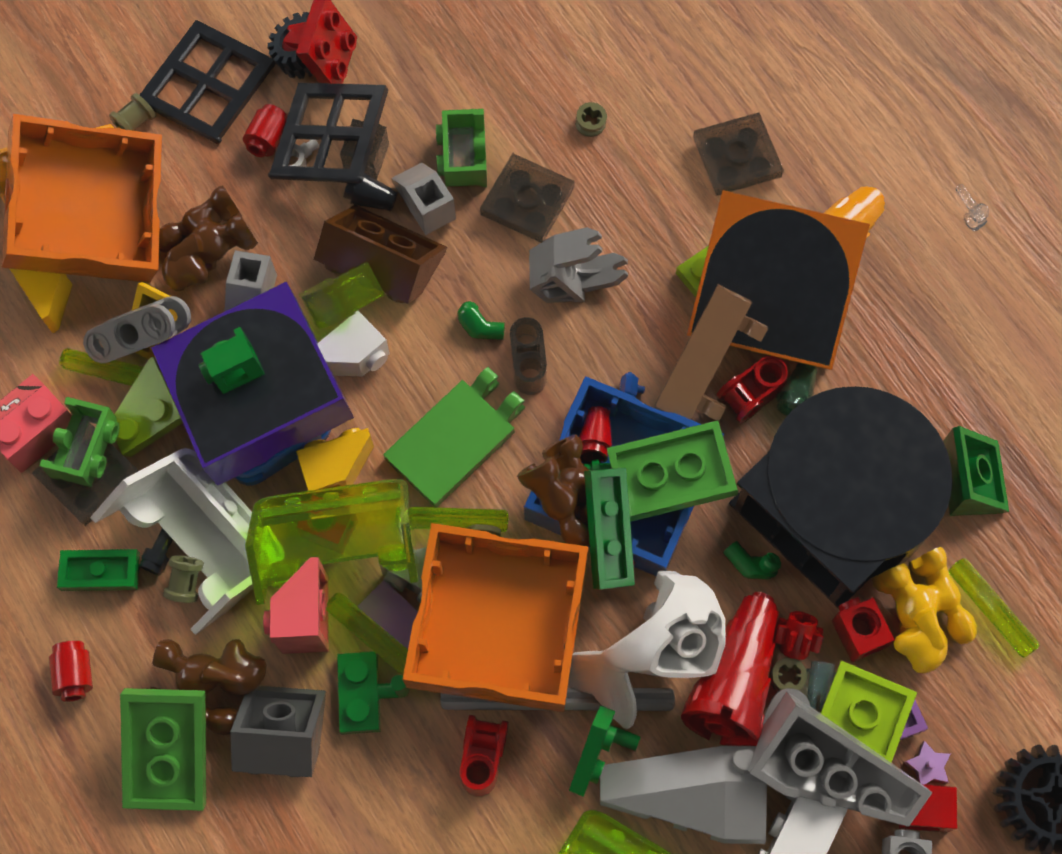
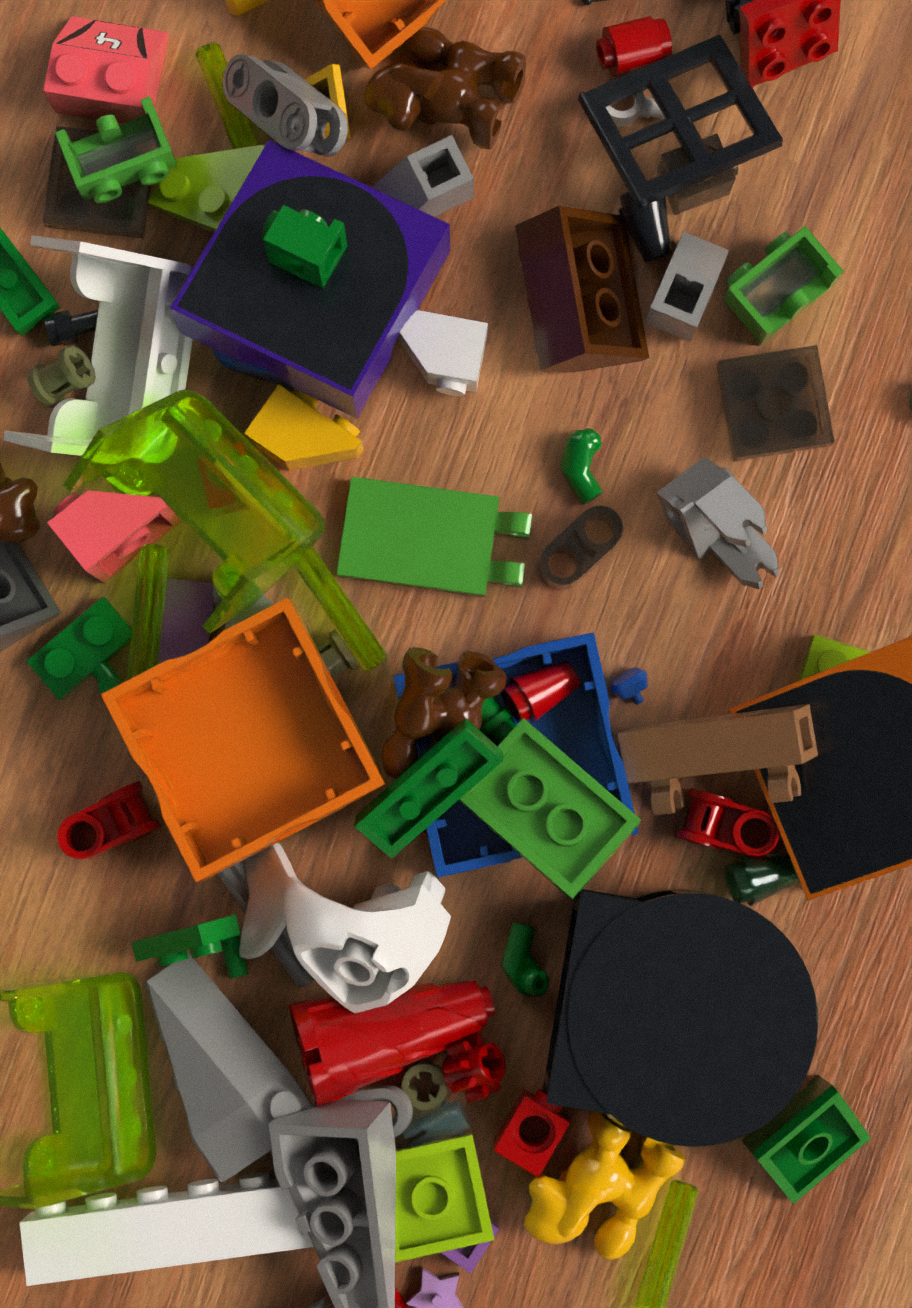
camera: 55 degrees right, 15 degrees up
(341, 297) = (483, 291): clear neon green brick -> none

